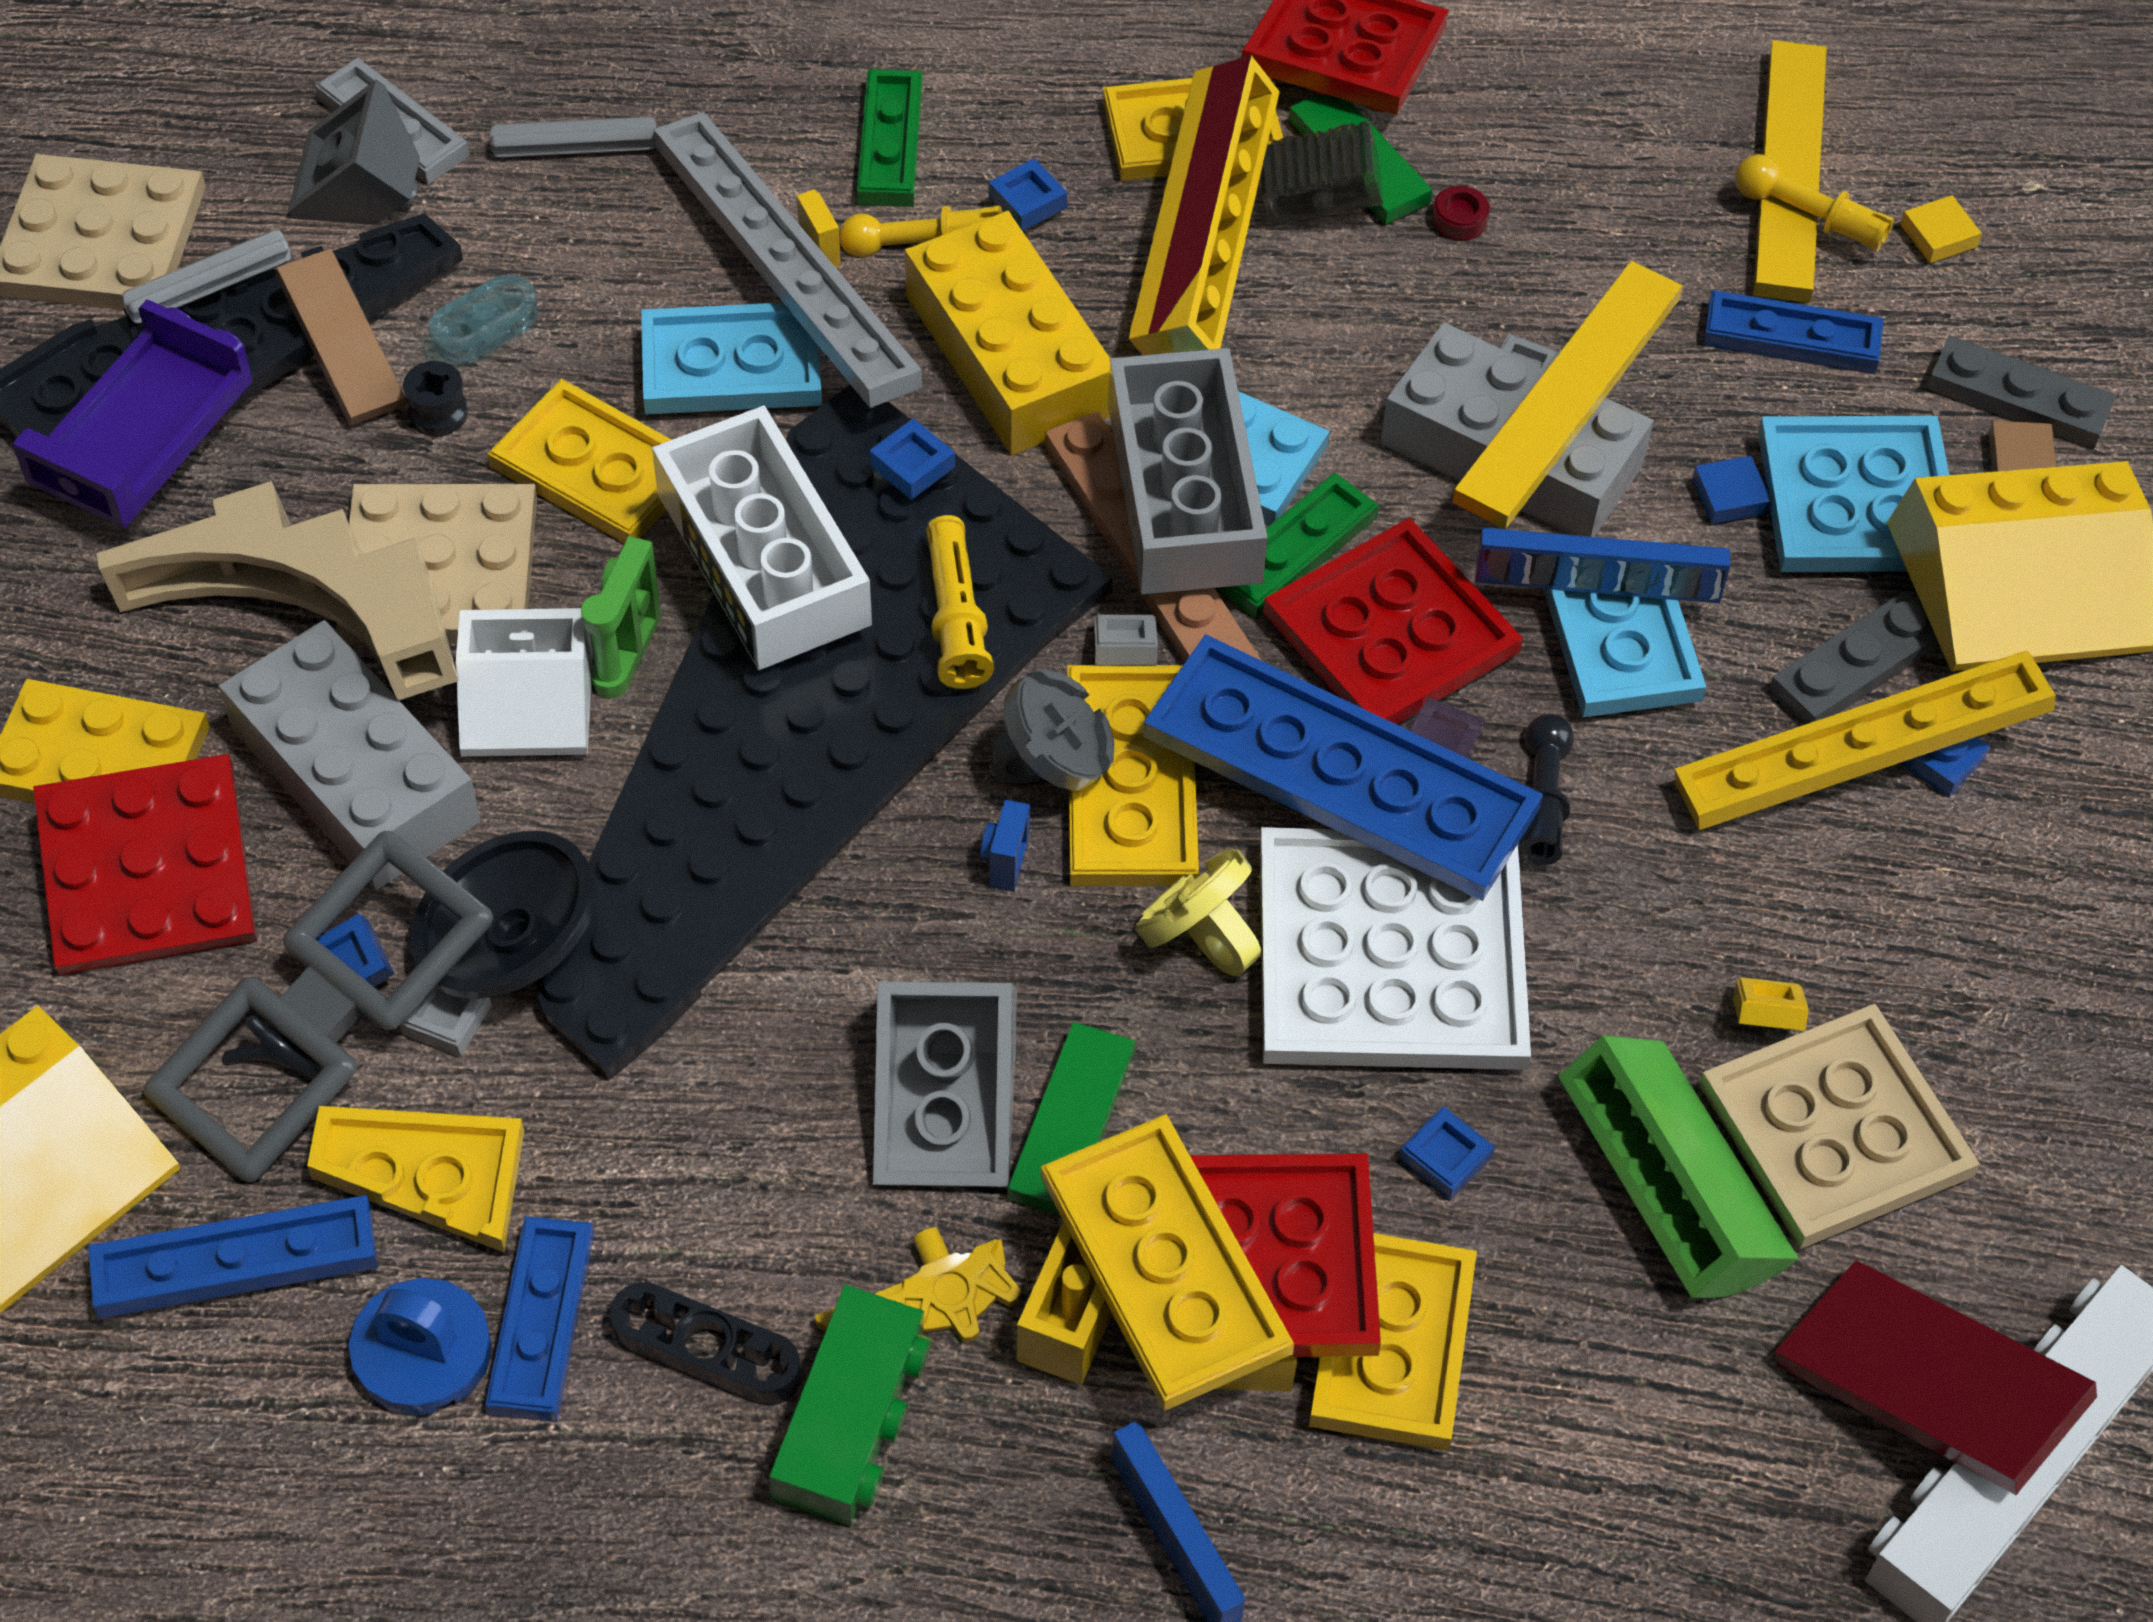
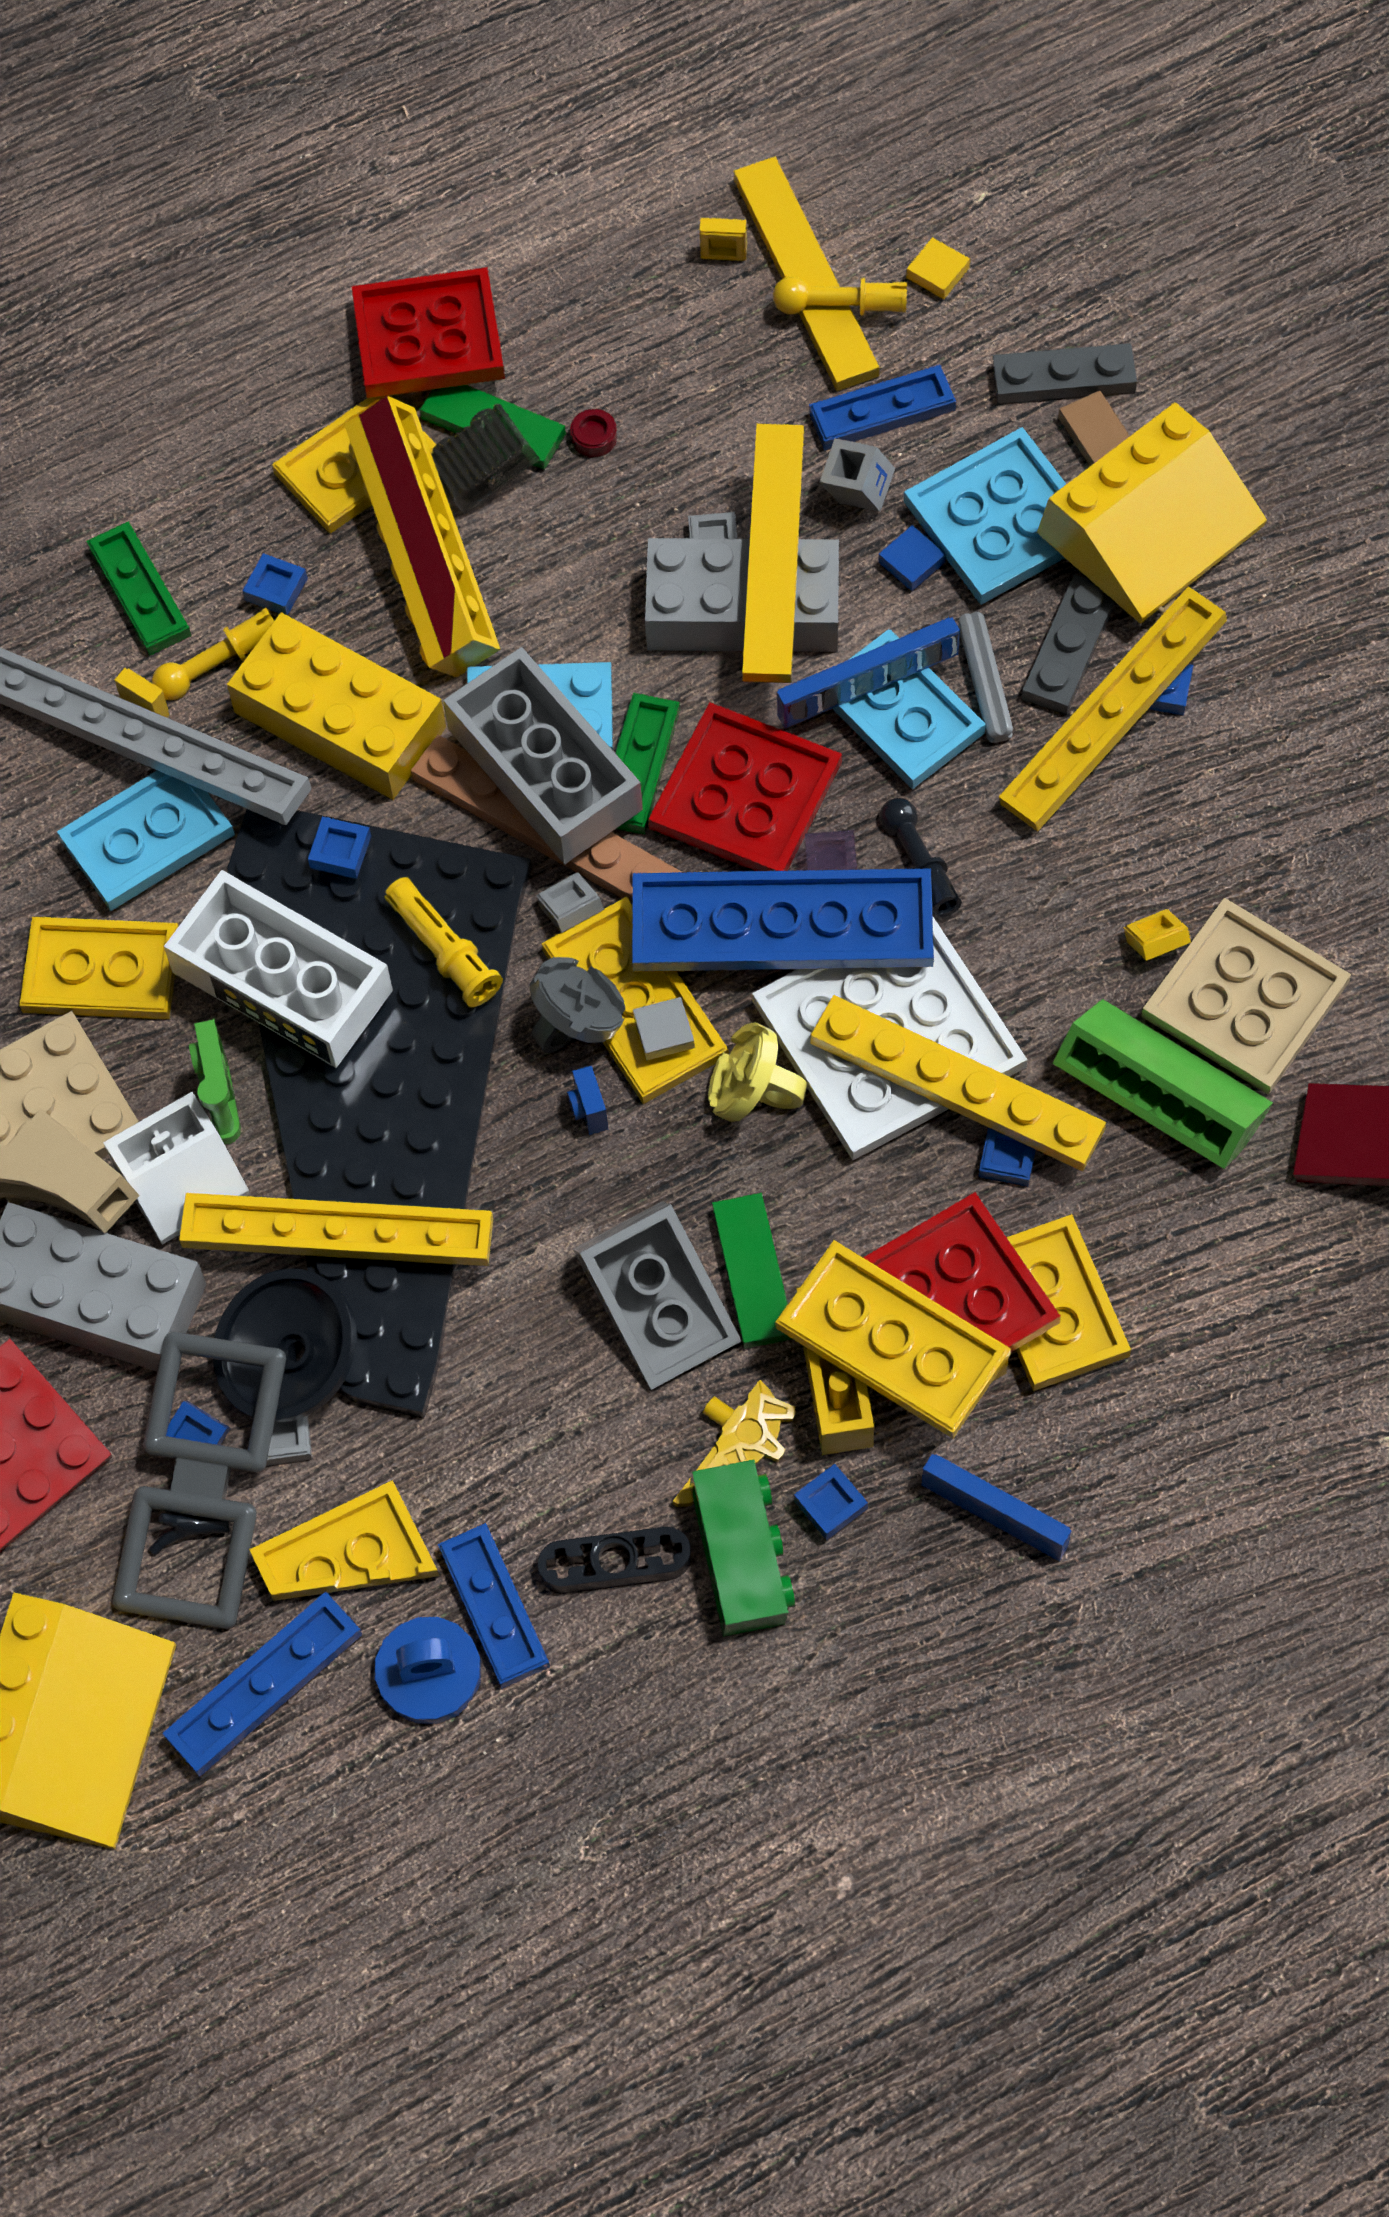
camera: 25 degrees left, 10 degrees up
(644, 827) = (336, 1229): none -> yellow plate
(990, 1415) = (830, 1501): none -> blue plate
(1138, 813) = (663, 1028): none -> light grey tile
(1435, 1040) = (958, 1083): none -> yellow plate
(1718, 94) = (723, 239): none -> yellow tile
(1718, 373) = (857, 474): none -> light grey brick
(1738, 646) = (985, 677): none -> light grey axle

